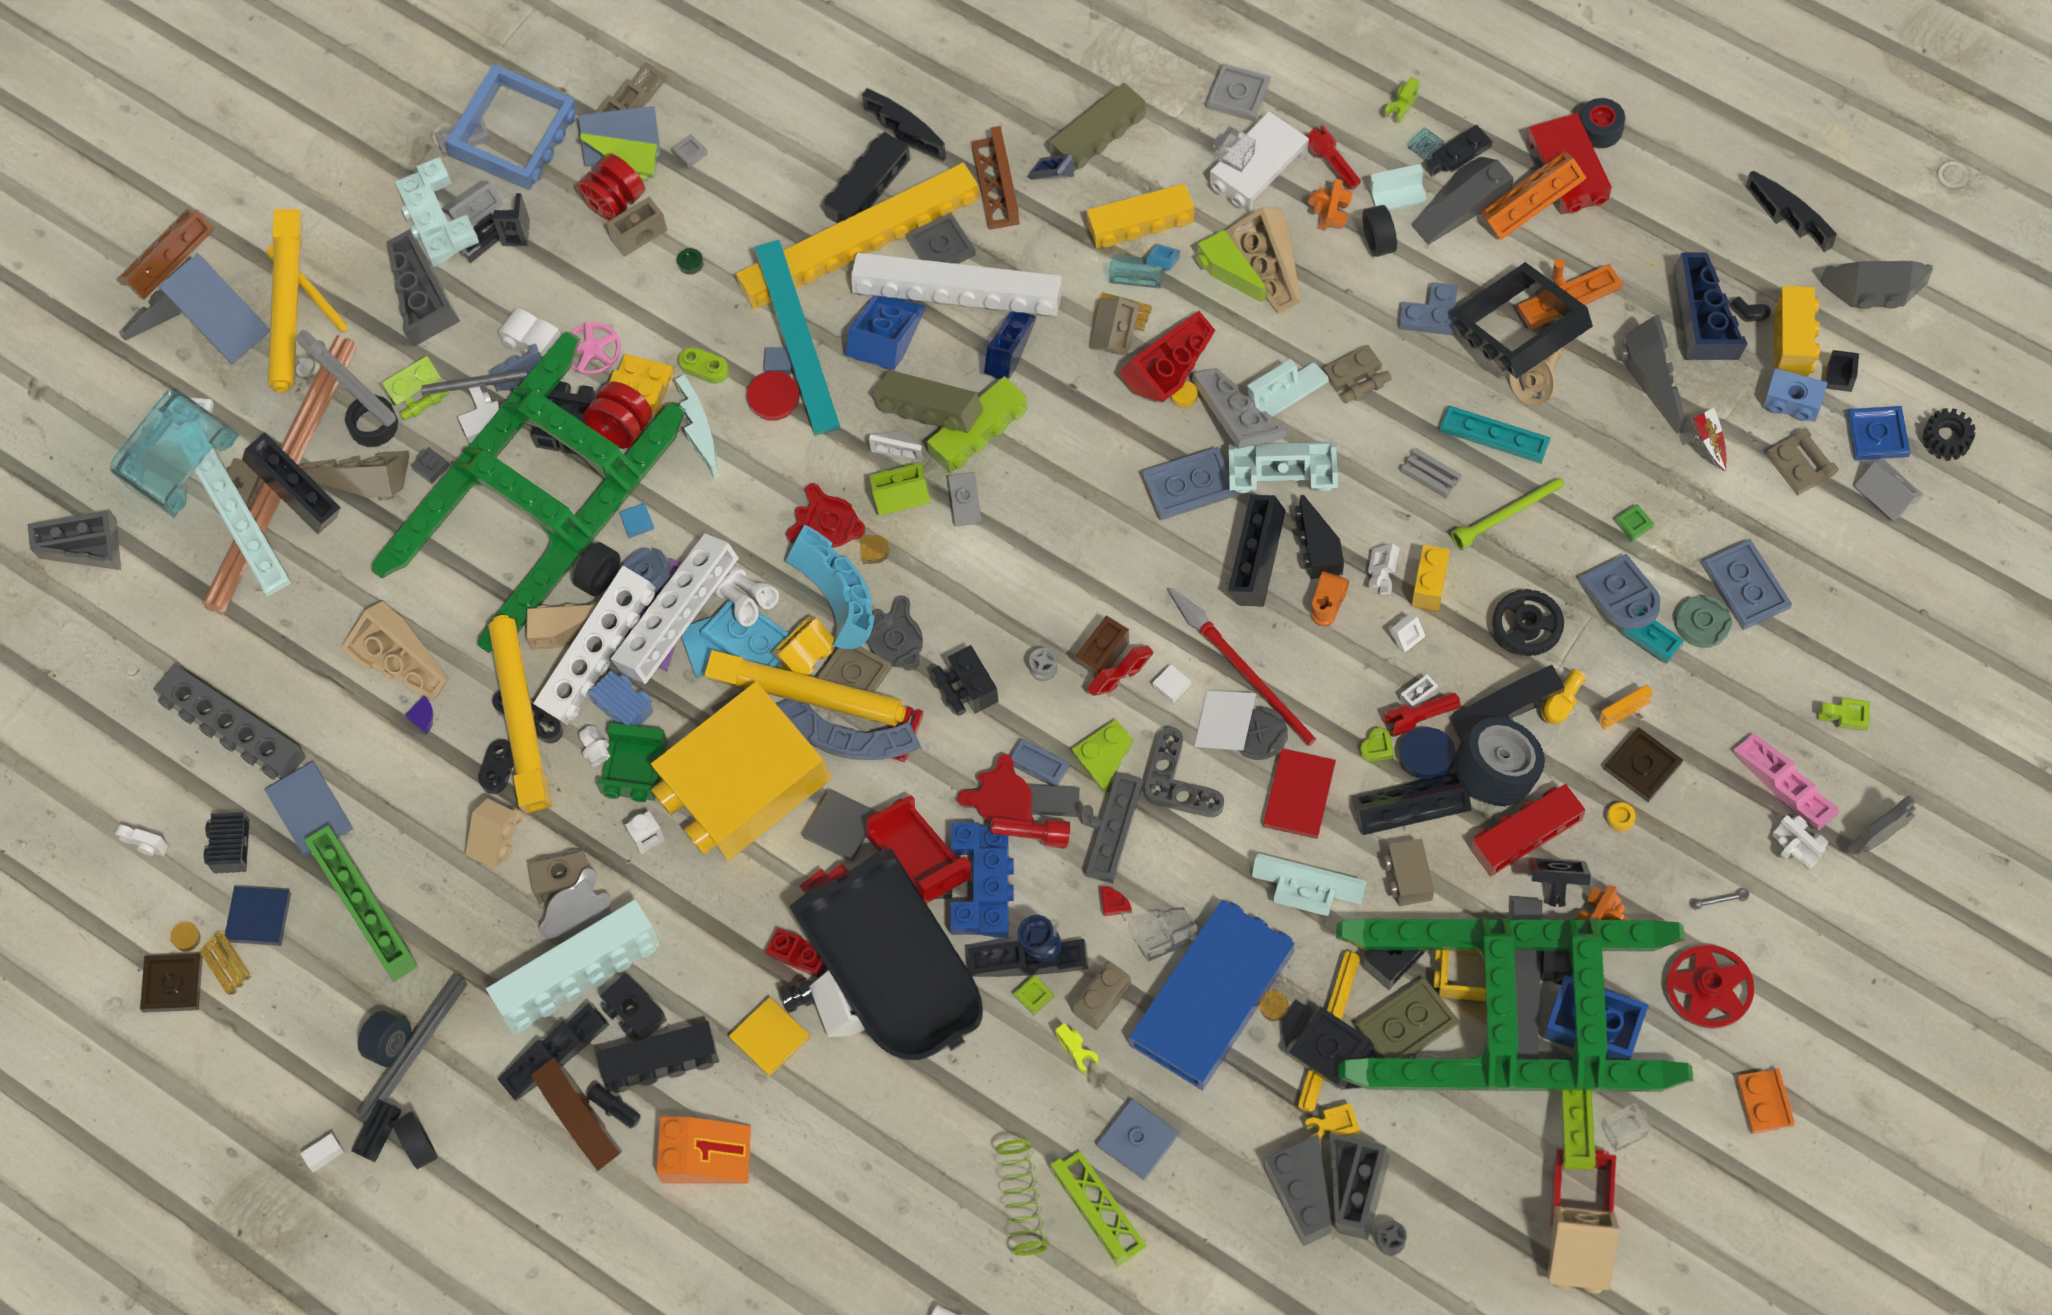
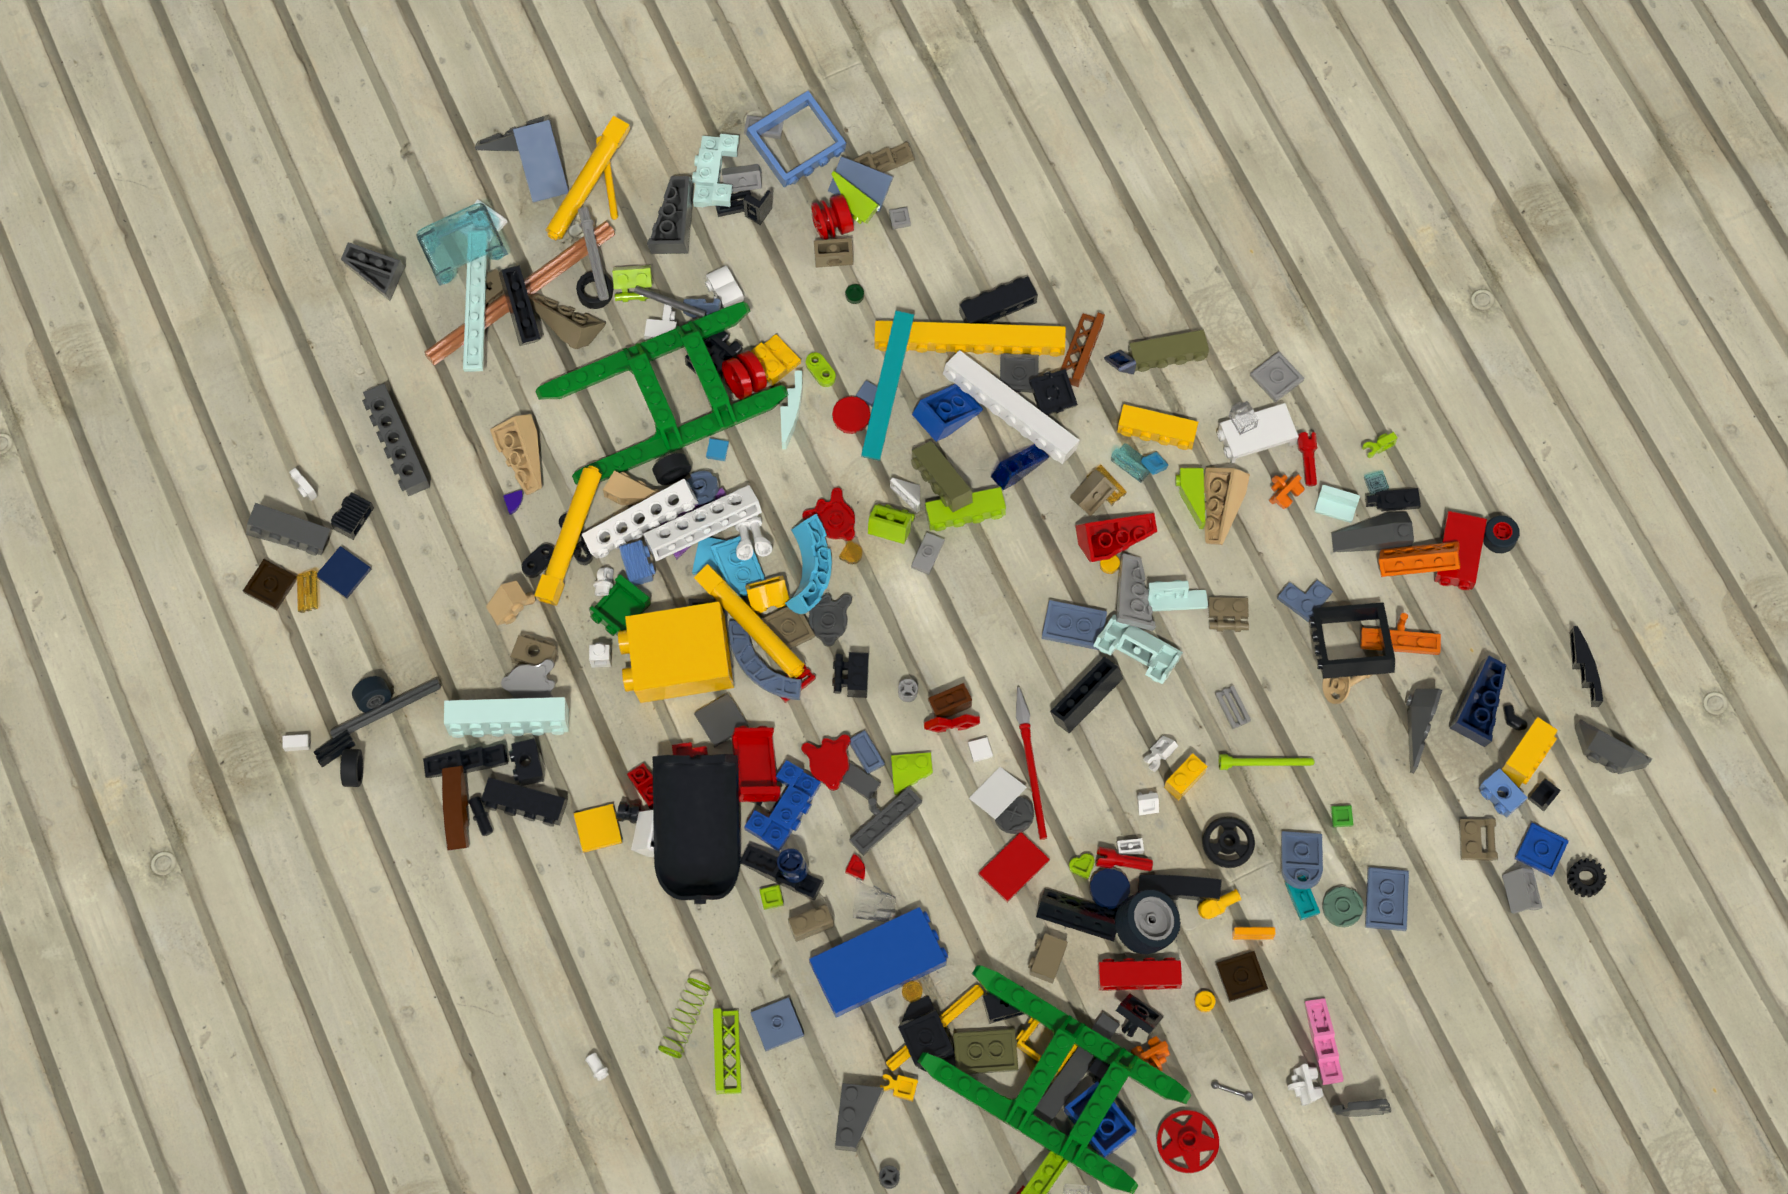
camera: 25 degrees right, 5 degrees up
(154, 904) = (286, 530): none -> dark grey wedge
(166, 253) = (535, 104): dark orange fence -> none
(185, 936) = (294, 560): clear yellow tile -> none
(307, 806) = (411, 522): sand blue tile -> none
(361, 903) = (406, 601): bright green brick -> none
(430, 465) = (613, 339): dark grey tile -> none
(593, 348) = (758, 319): bright pink wheel -> none
(703, 1151) = (515, 875): orange slope -> none
(907, 125) = (1047, 282): black slope -> none
(995, 241) = (1053, 392): none -> black plate
(1050, 833) = (843, 801): red piece -> none
(1071, 1042) = (774, 941): neon yellow plate -> none
(1167, 781) = (938, 809): dark grey beam -> none
(1307, 886) = (978, 929): light aqua bracket -> none
(1321, 542) = (1131, 714): black slope -> none
(1328, 596) = (1115, 749): orange piece -> none
(1357, 1183) = (889, 1132): dark grey wedge -> none
(1379, 230) = (1303, 526): black tyre -> none
(1495, 434) = (1291, 705): teal tile -> none
(1708, 437) = (1427, 788): shield -> none
(1850, 713) = (1394, 1023): lime plate -> none

